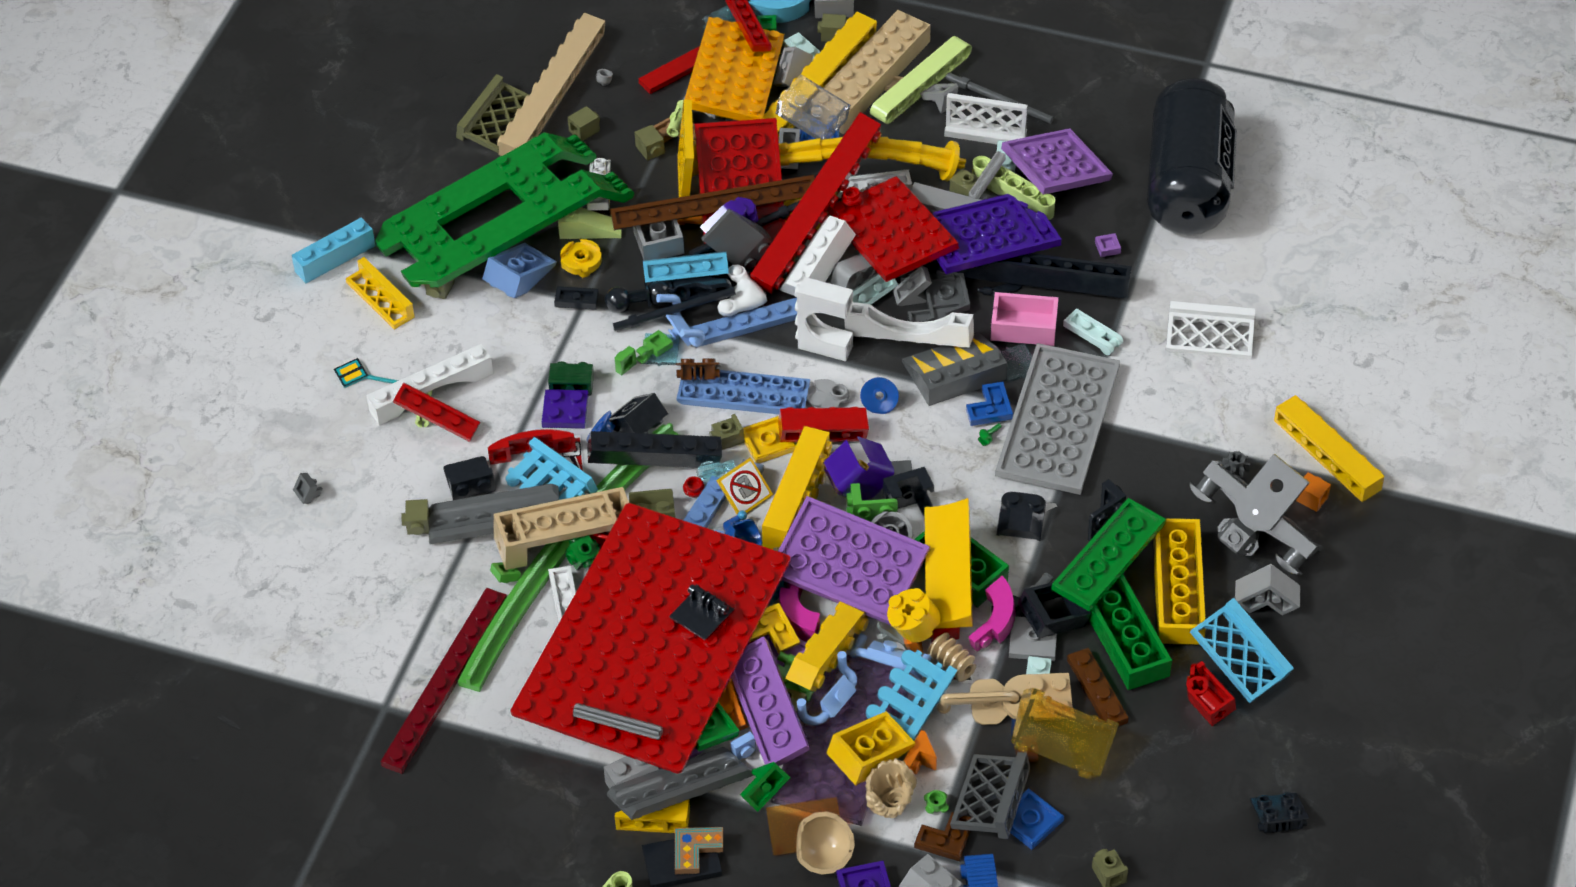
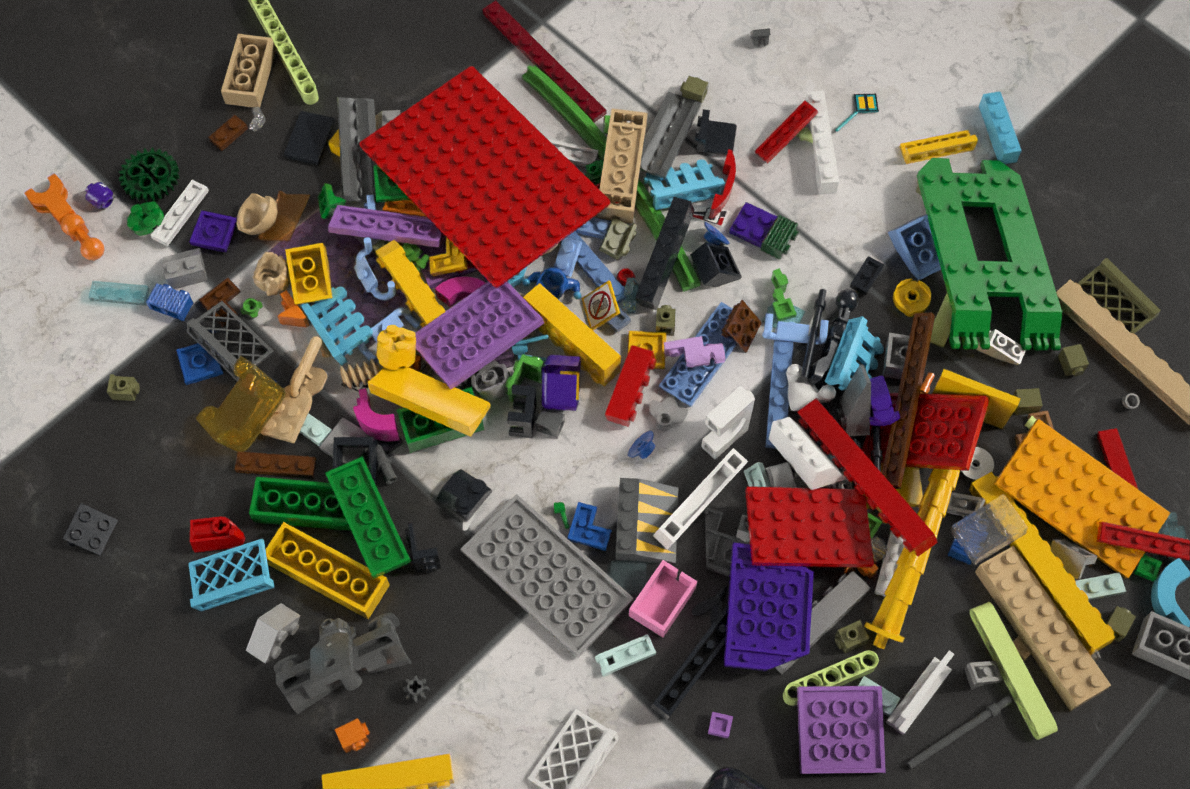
camera: 115 degrees right, 15 degrees up
(617, 721) = (416, 117): dark grey axle -> none
(691, 842) = (312, 141): medium nougat tile -> none
(701, 612) = (475, 202): black hinge -> none
(754, 385) = (695, 352): none -> lavender plate
(851, 196) = (858, 507): red plate -> none
(987, 175) = (846, 652): light grey axle -> none

